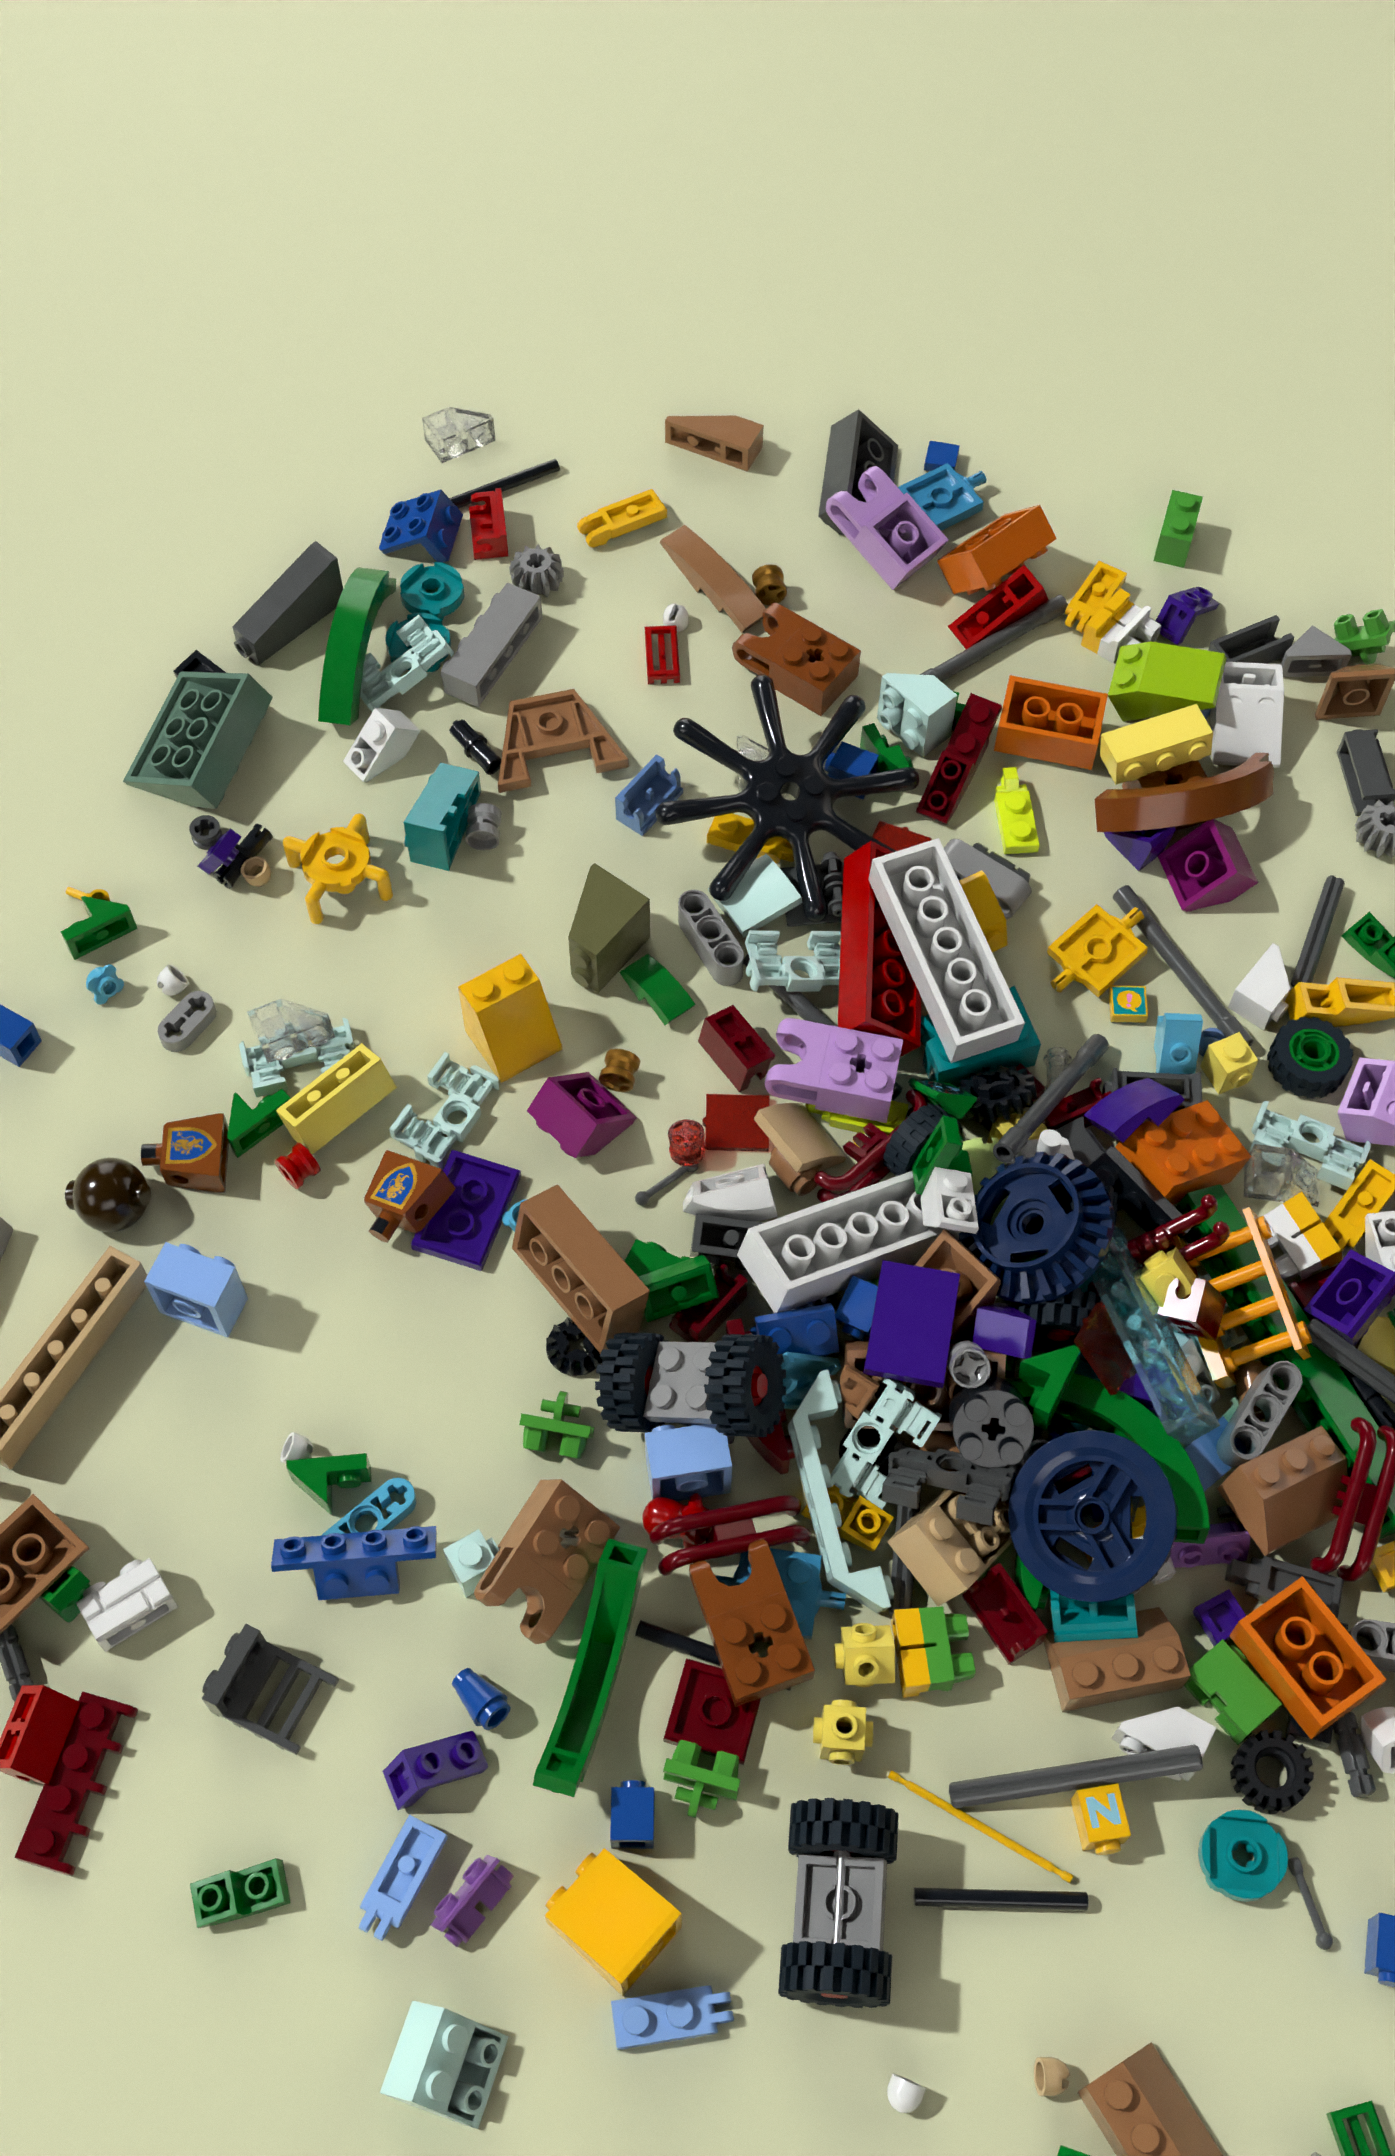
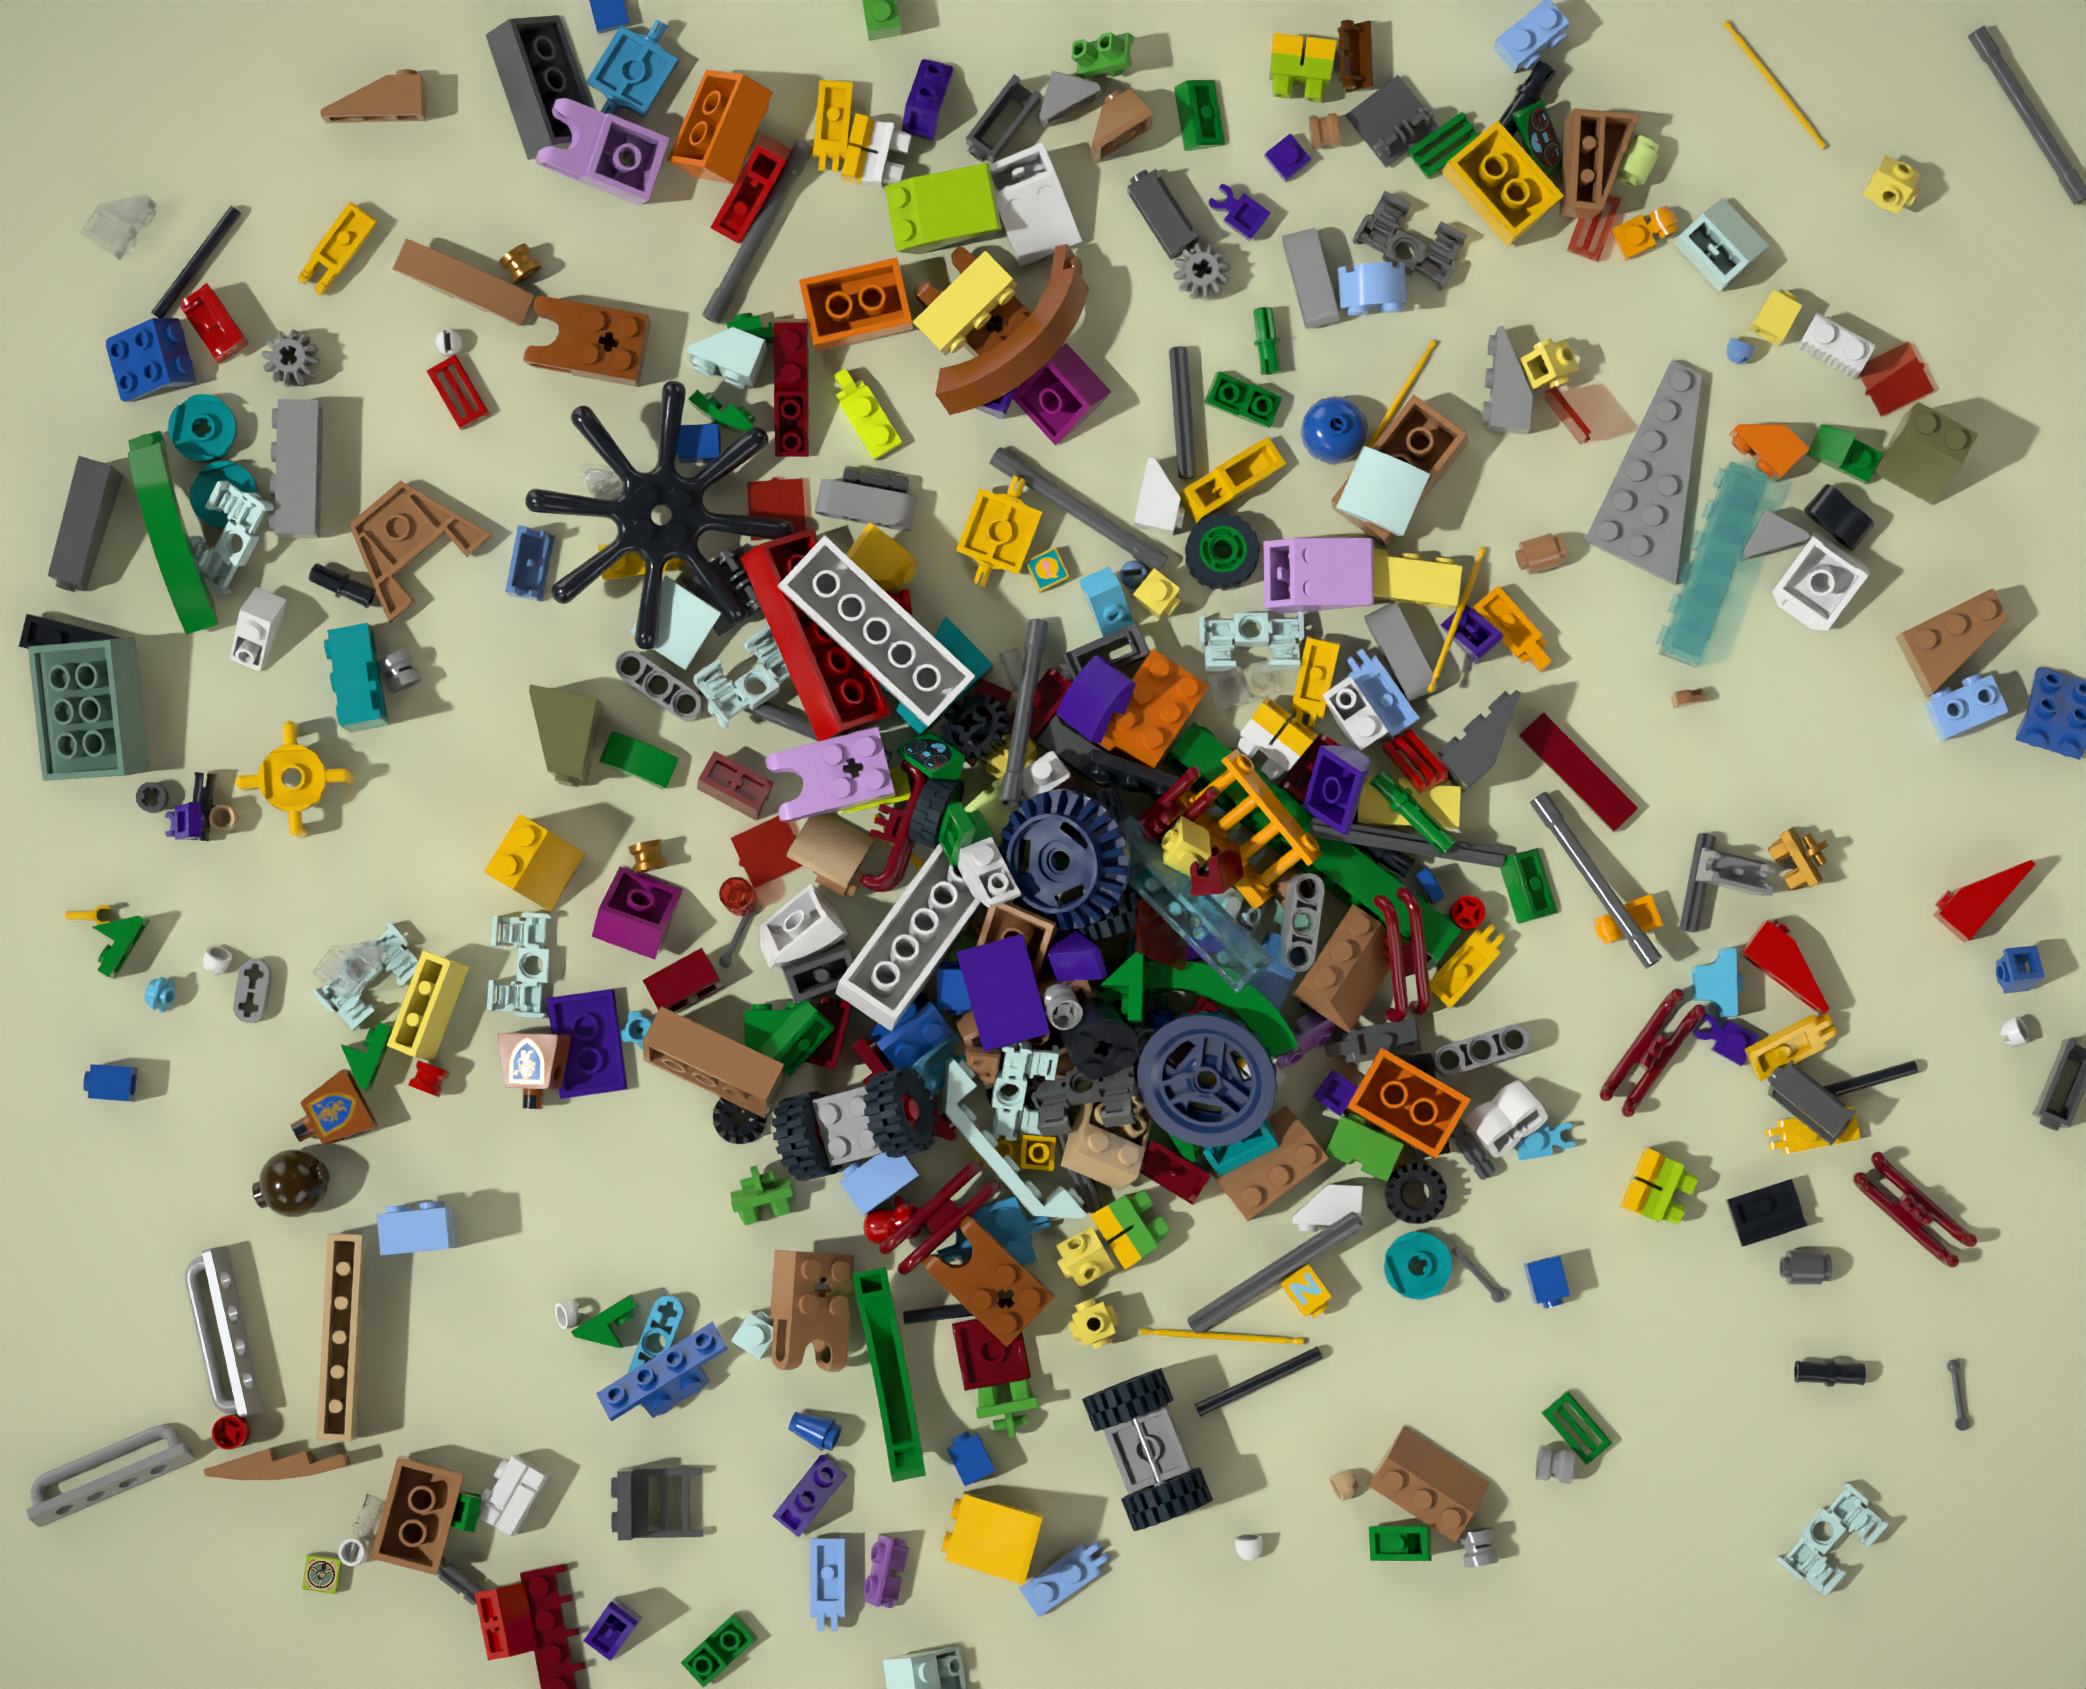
camera: 25 degrees left, 25 degrees up
(141, 1804) = (612, 1628): none -> dark purple slope
(596, 1192) = (683, 982): none -> dark red hinge

